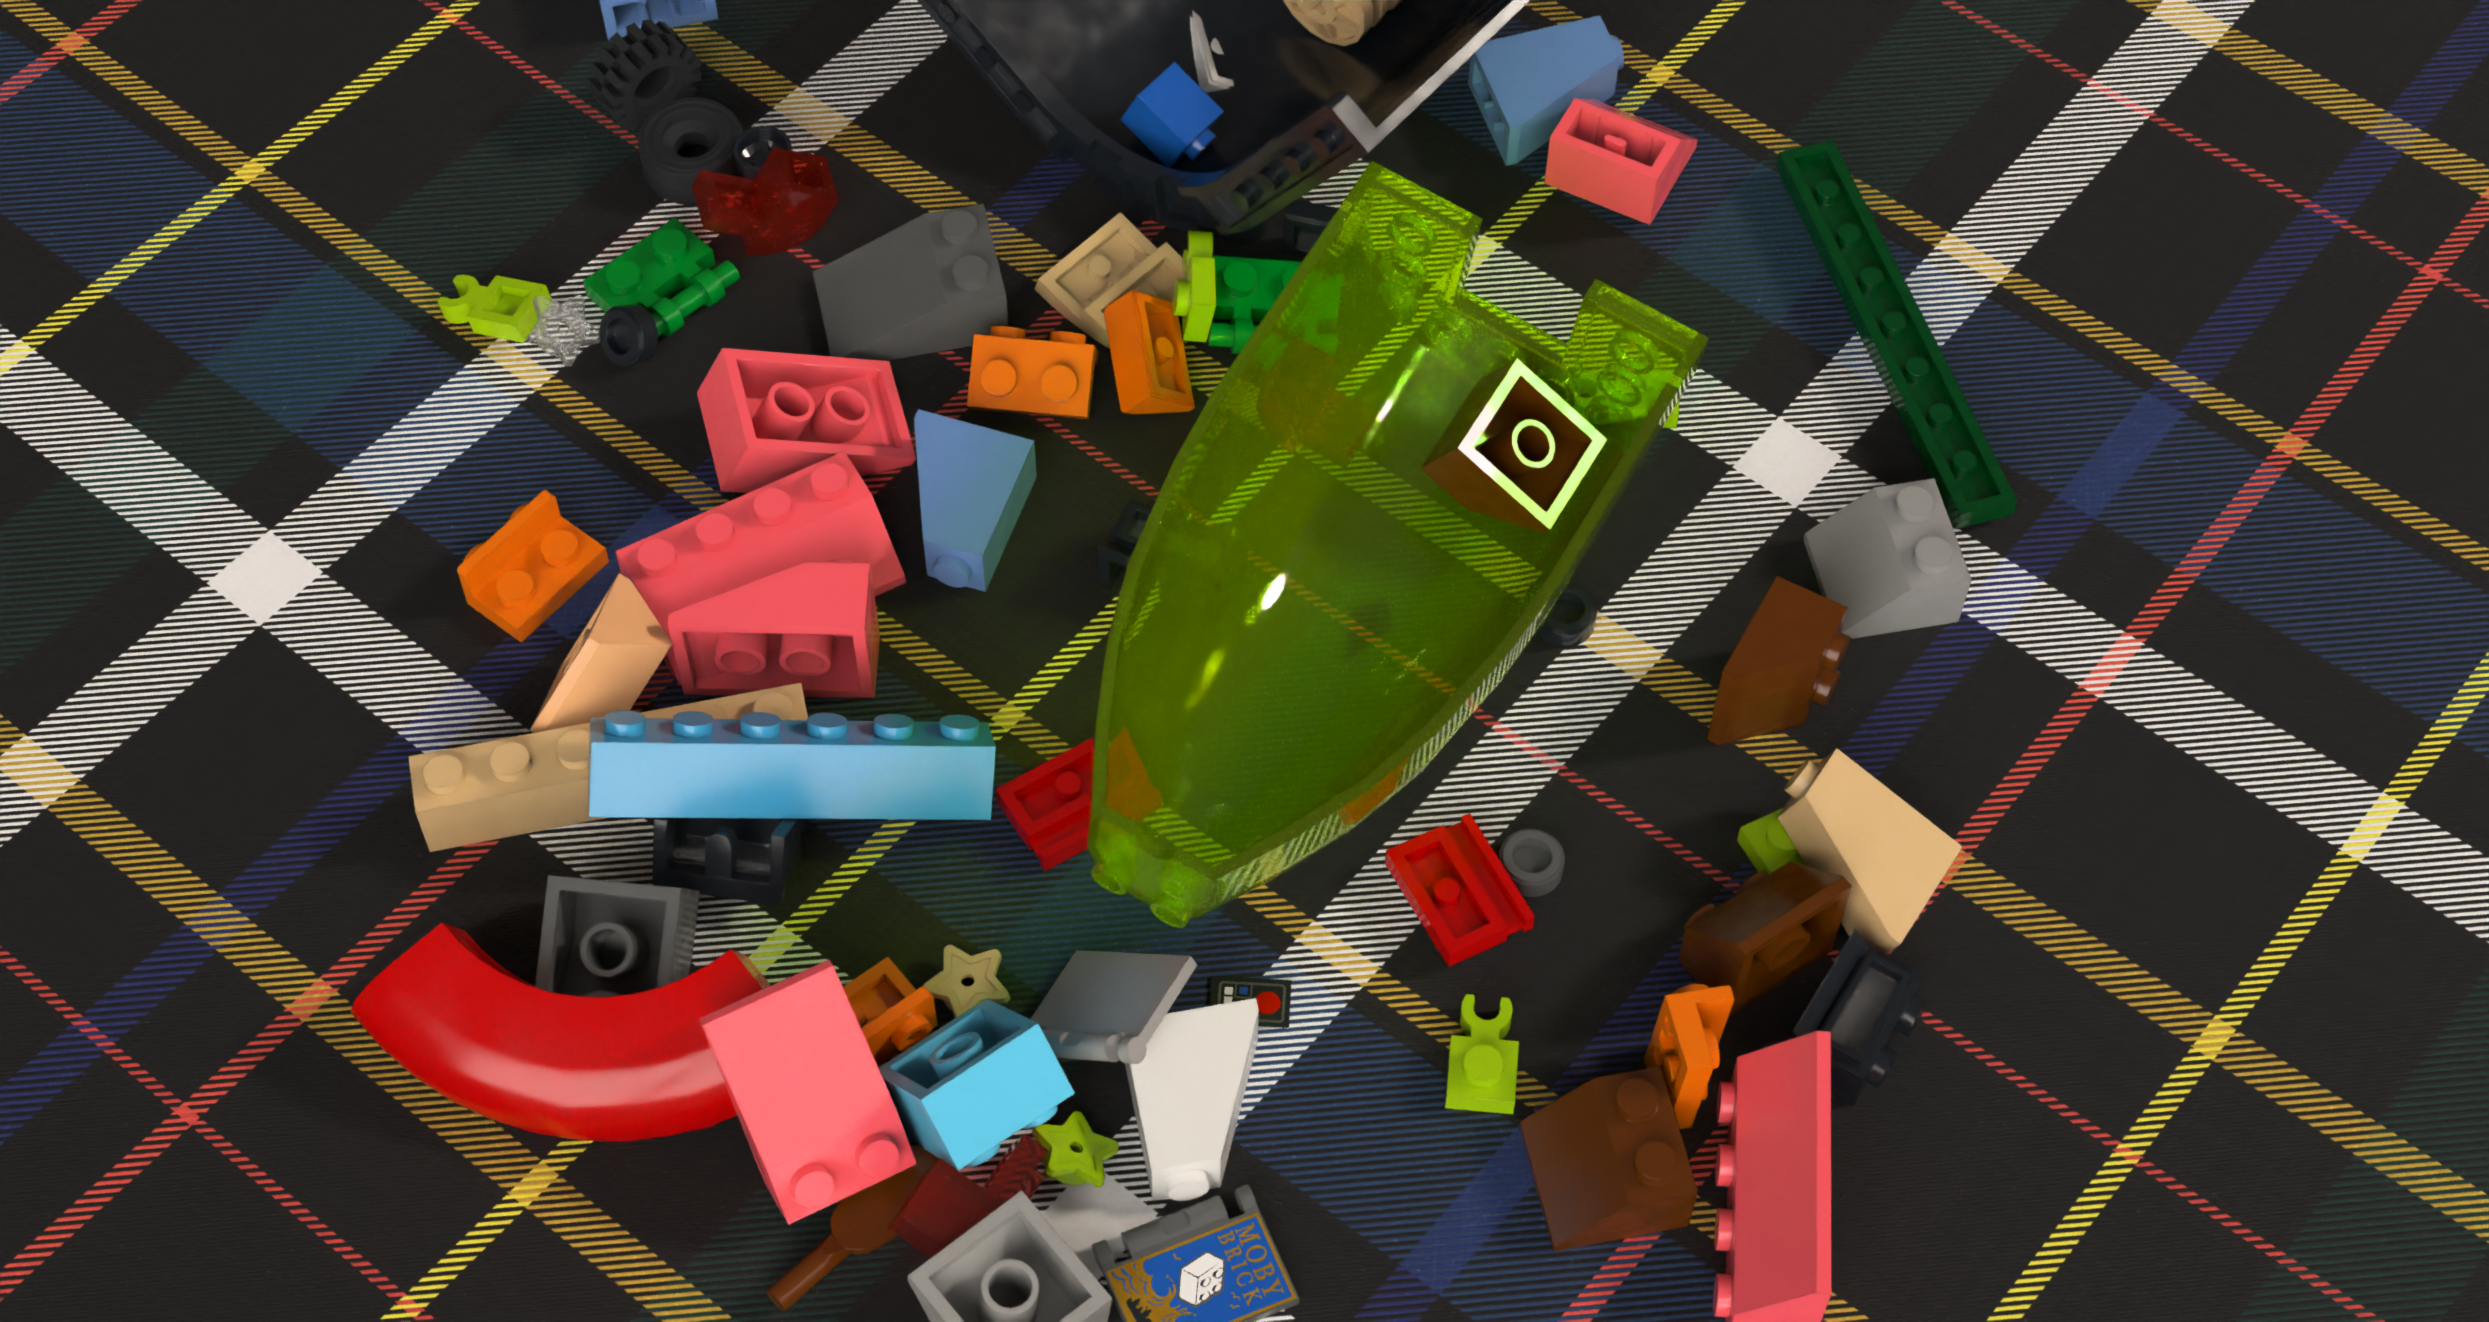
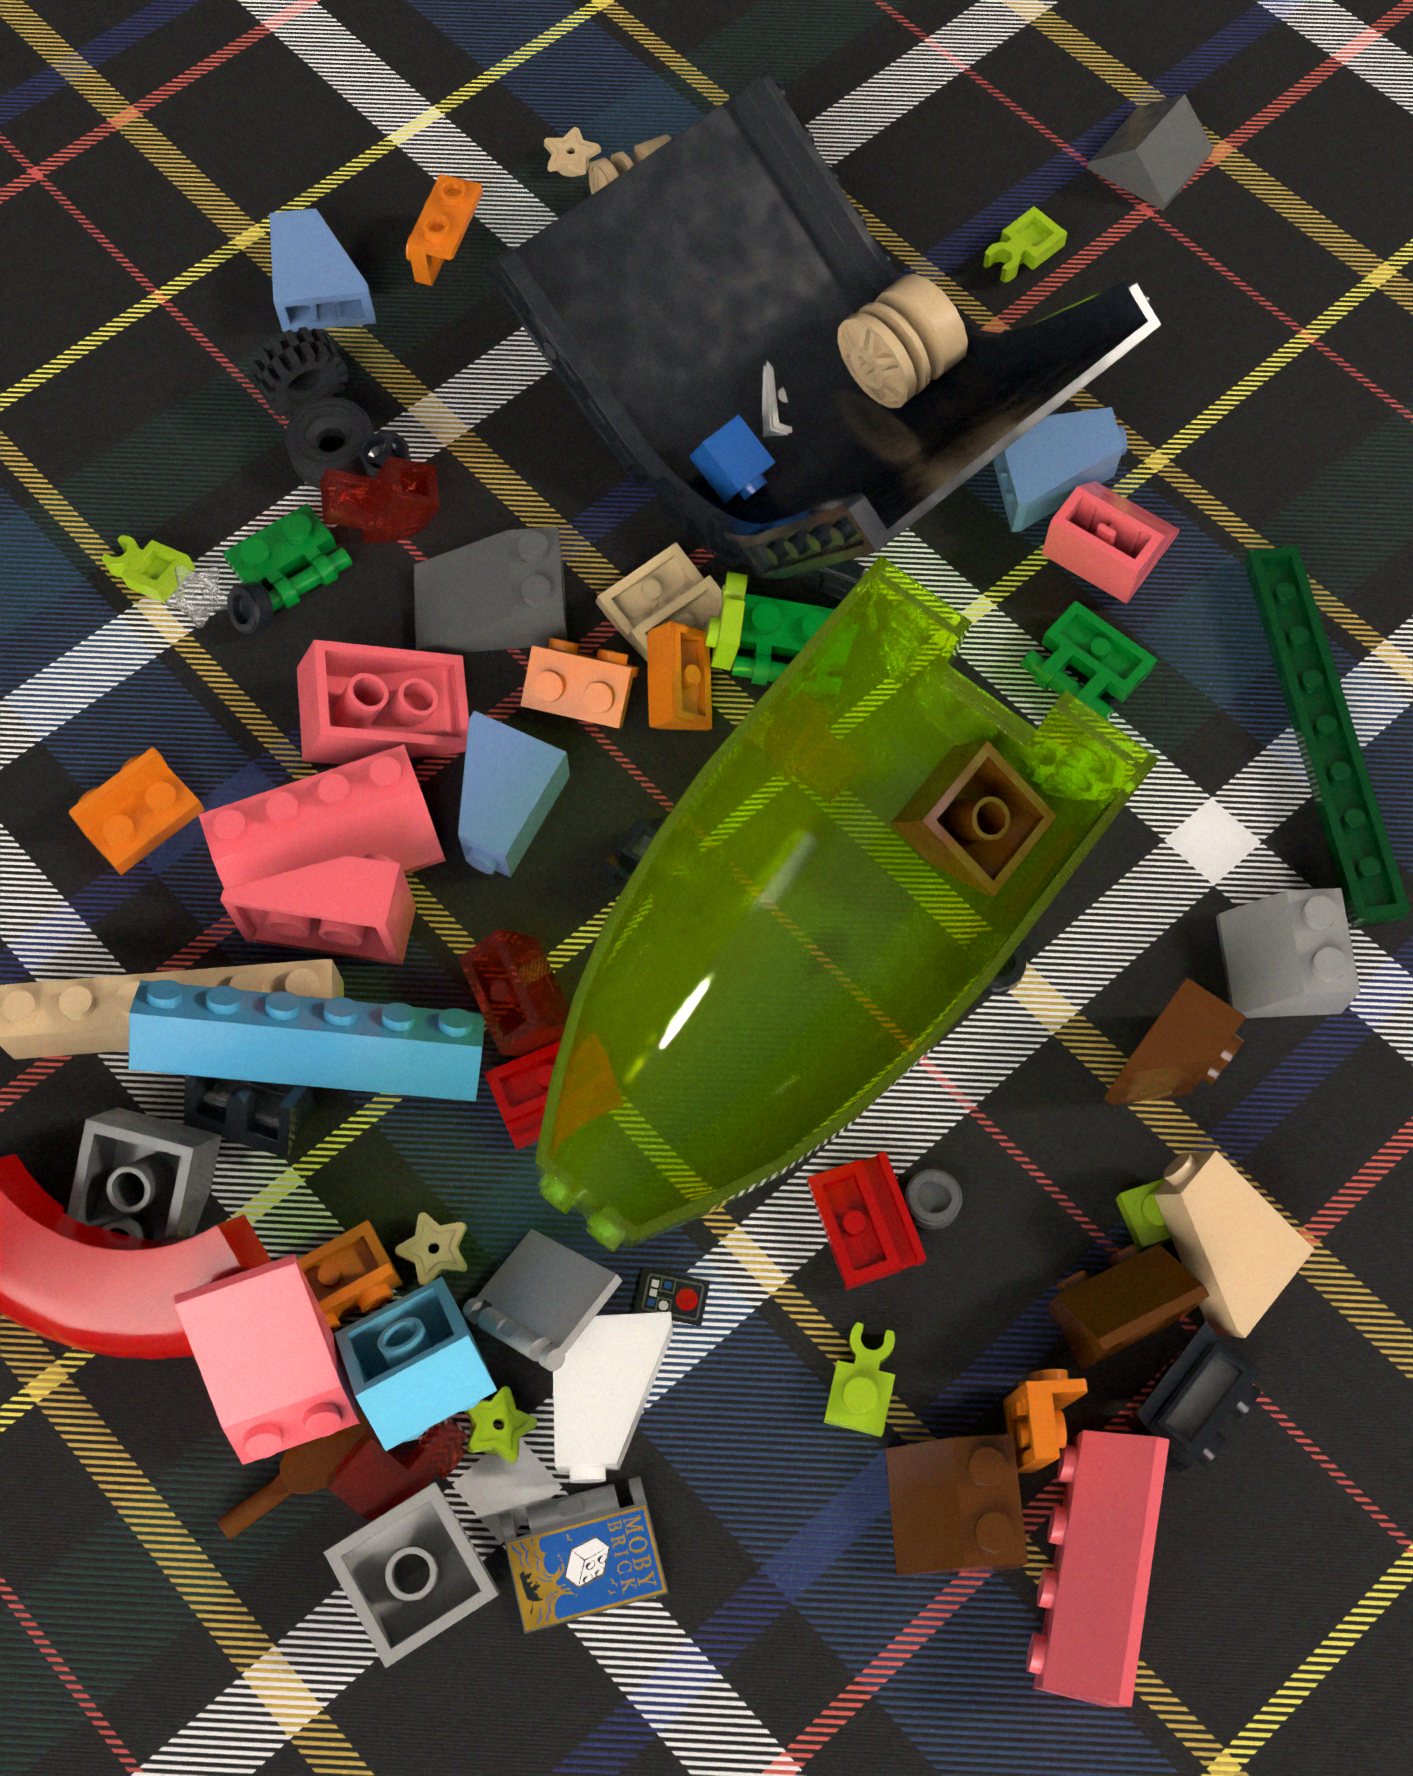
camera: 10 degrees right, 10 degrees up
(606, 662) = (173, 921): light nougat slope -> none
(1020, 697) = (516, 992): none -> clear red brick
(1621, 267) = (1094, 650): none -> green plate

